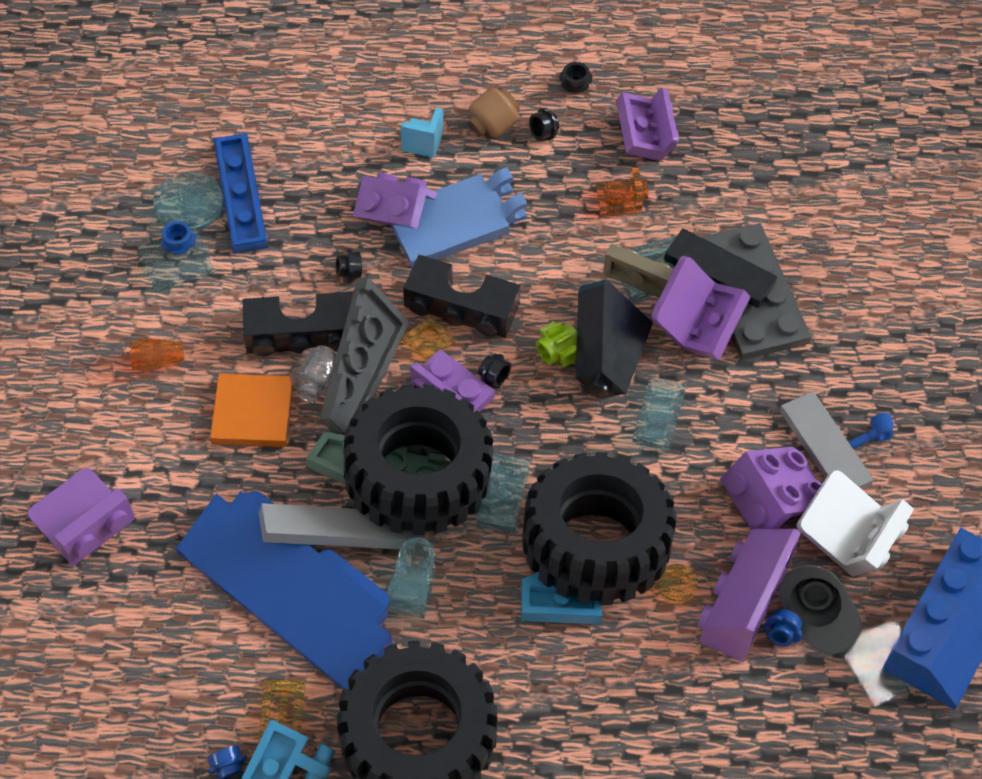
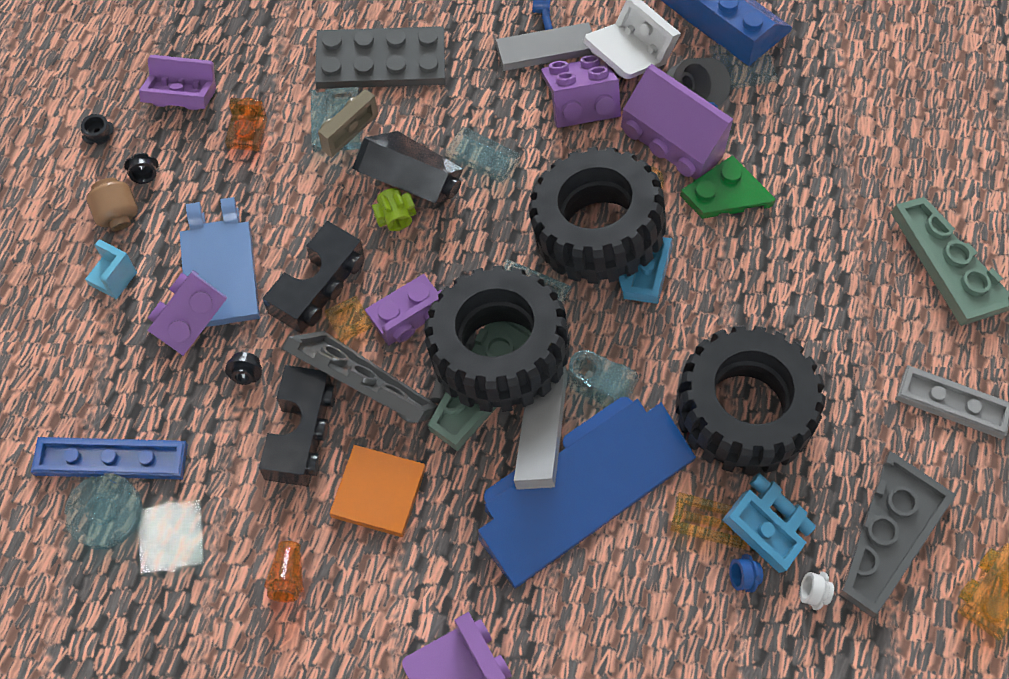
camera: 75 degrees left, 5 degrees up
(174, 231) = (144, 519): blue plate -> none
(313, 373) = (362, 419): clear head -> none
(494, 370) = (401, 269): black plate -> none
(693, 670) = (726, 190): none -> green wing
(698, 310) = (406, 87): medium lavender bracket -> none
(722, 266) = (359, 66): black tile -> none

